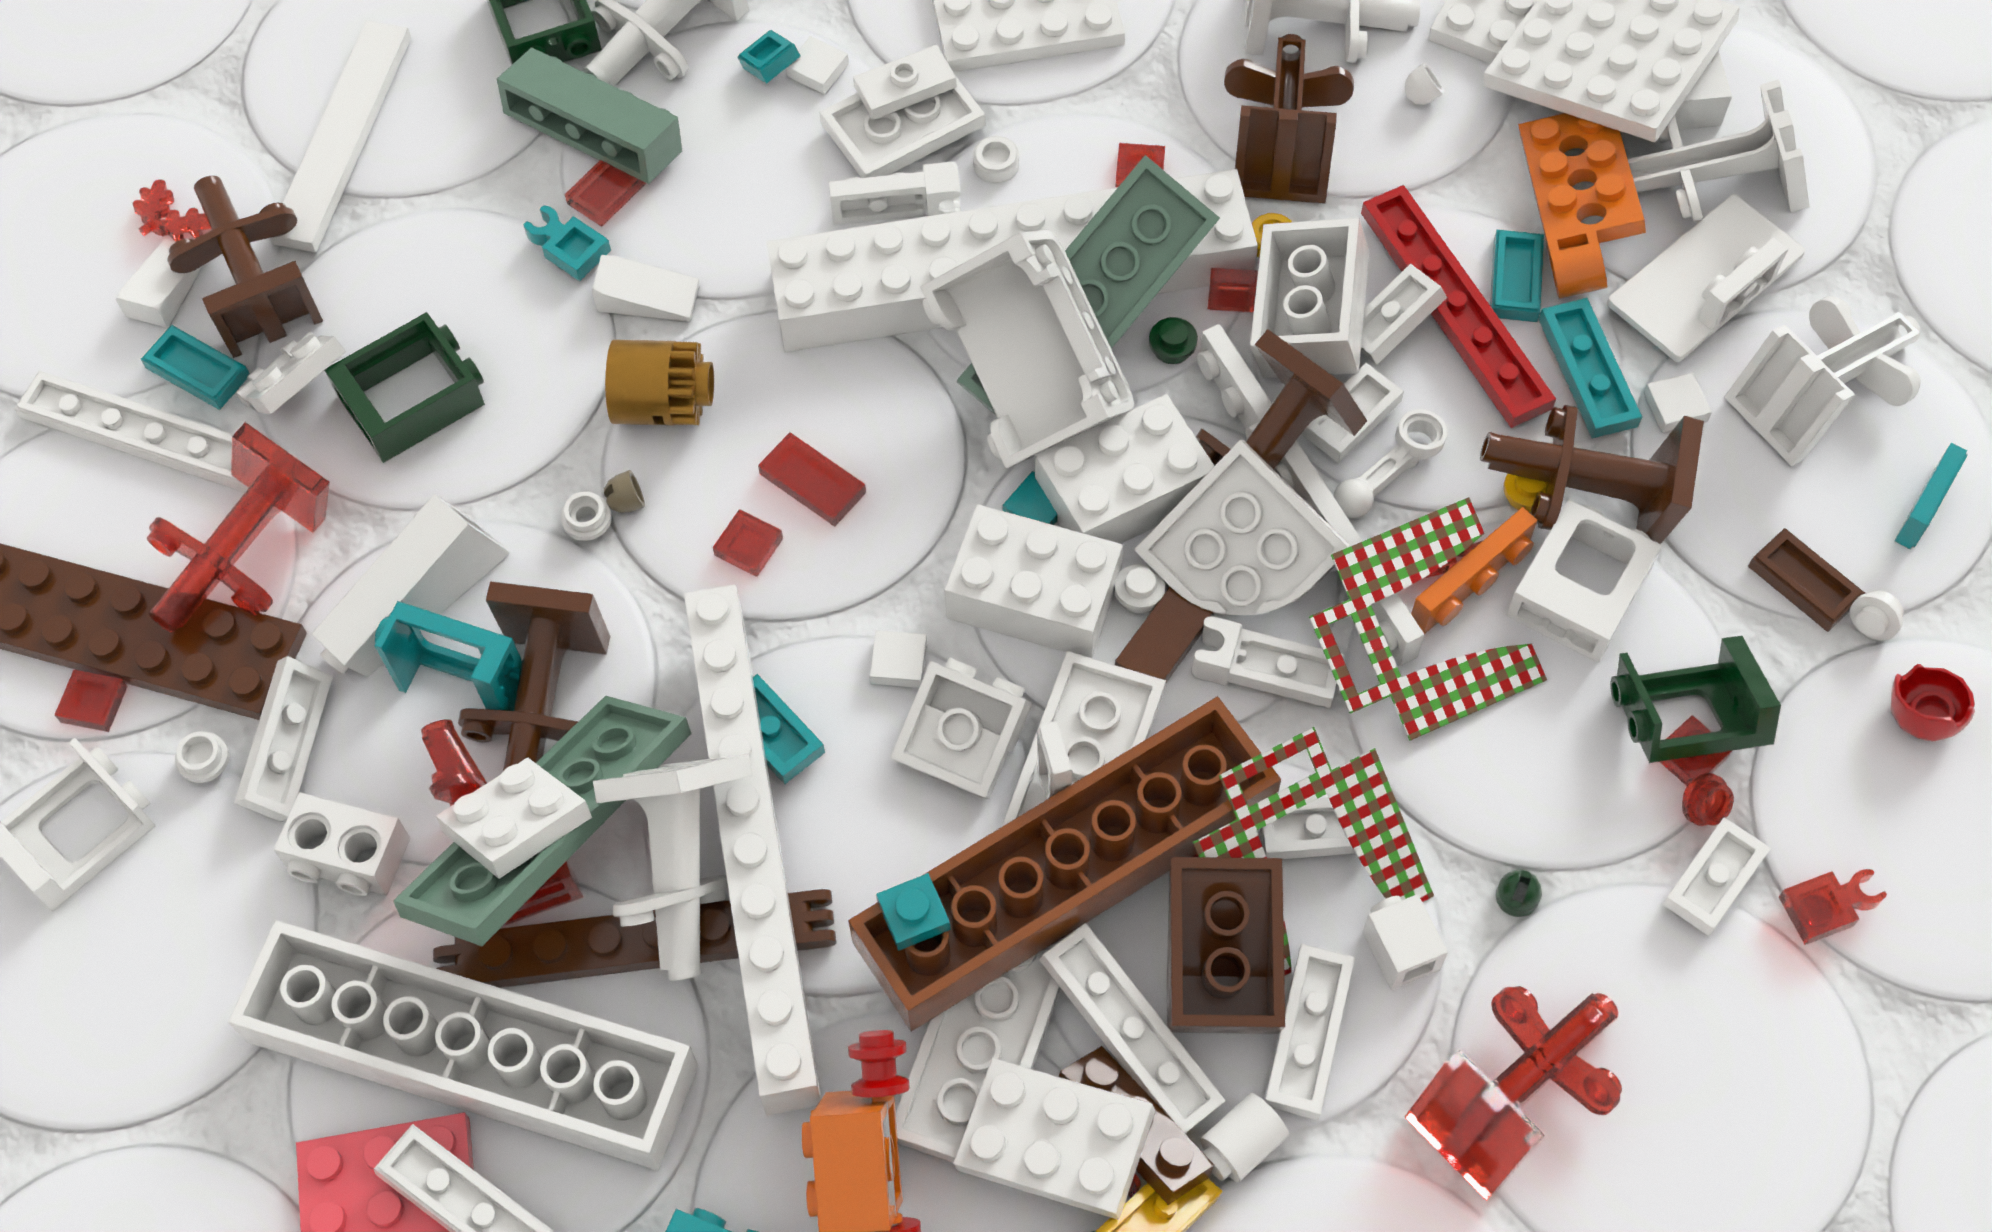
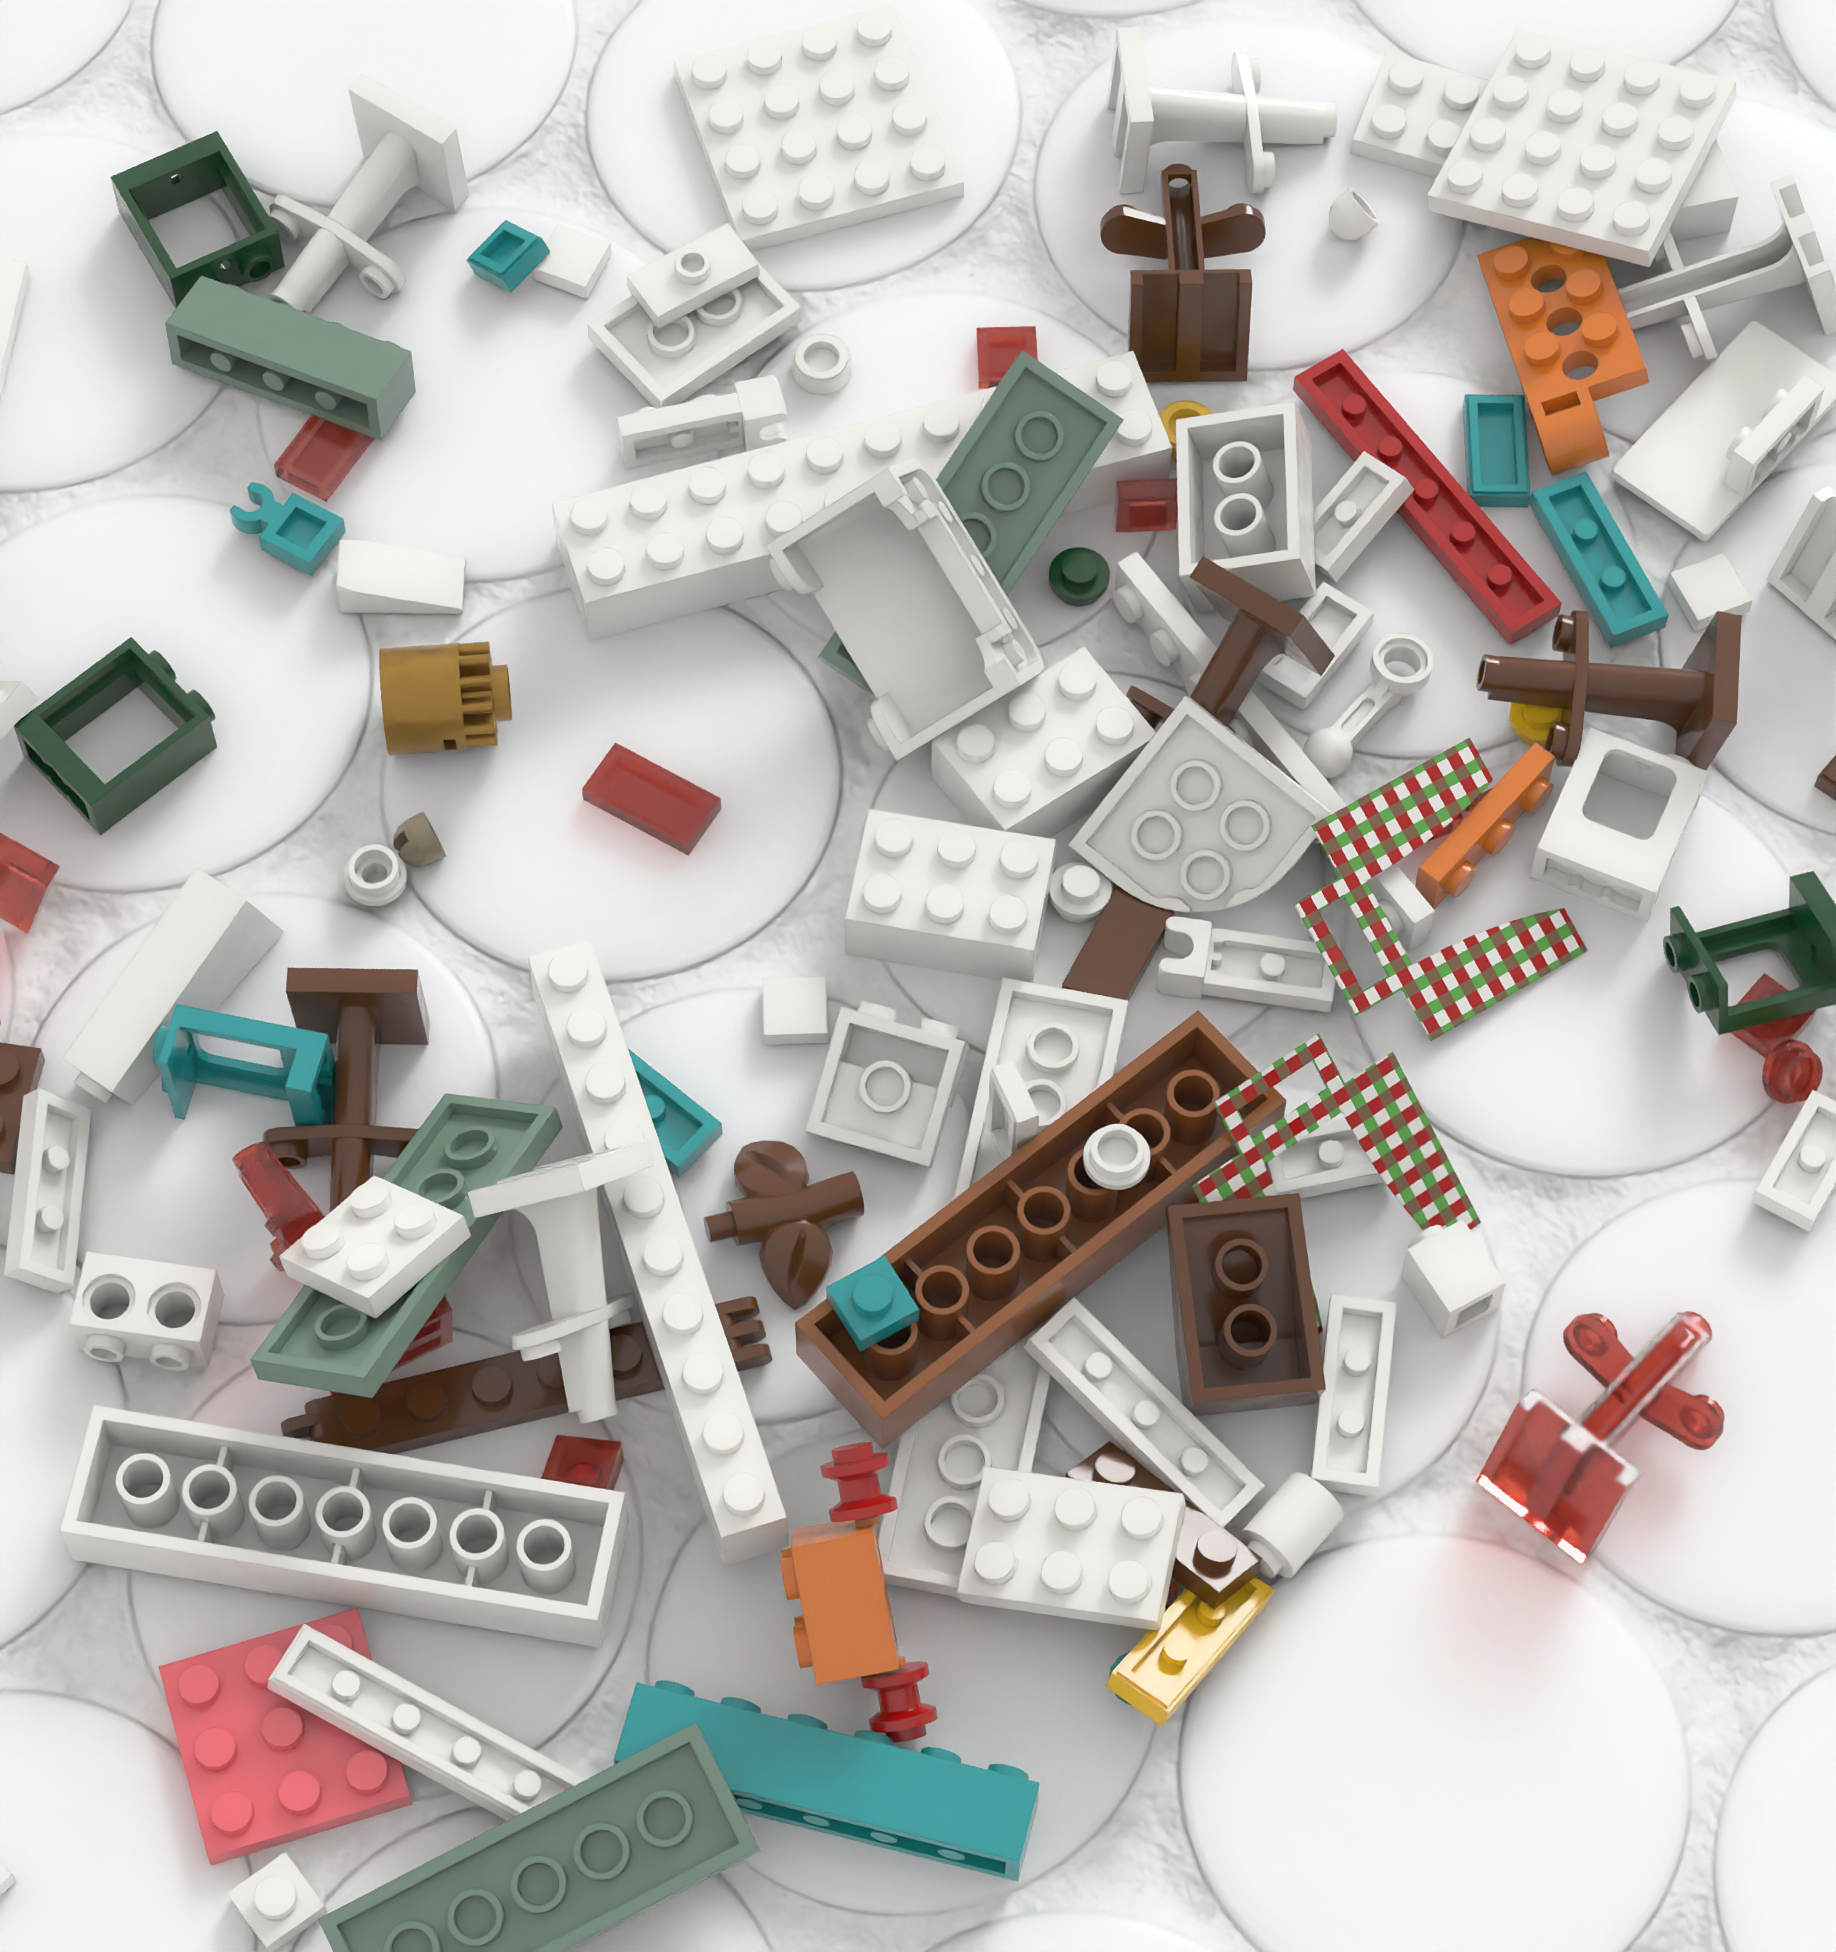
camera: 10 degrees left, 0 degrees up
(667, 1014) = (585, 1462): none -> clear red plate
(748, 542) = (584, 887): clear red tile -> none
(864, 826) = (786, 1217): none -> reddish brown plant
(1031, 502) = (930, 798): teal tile -> none
(1133, 811) = (1116, 1157): none -> white plate
(1507, 888) = (1567, 1201): dark green hinge -> none

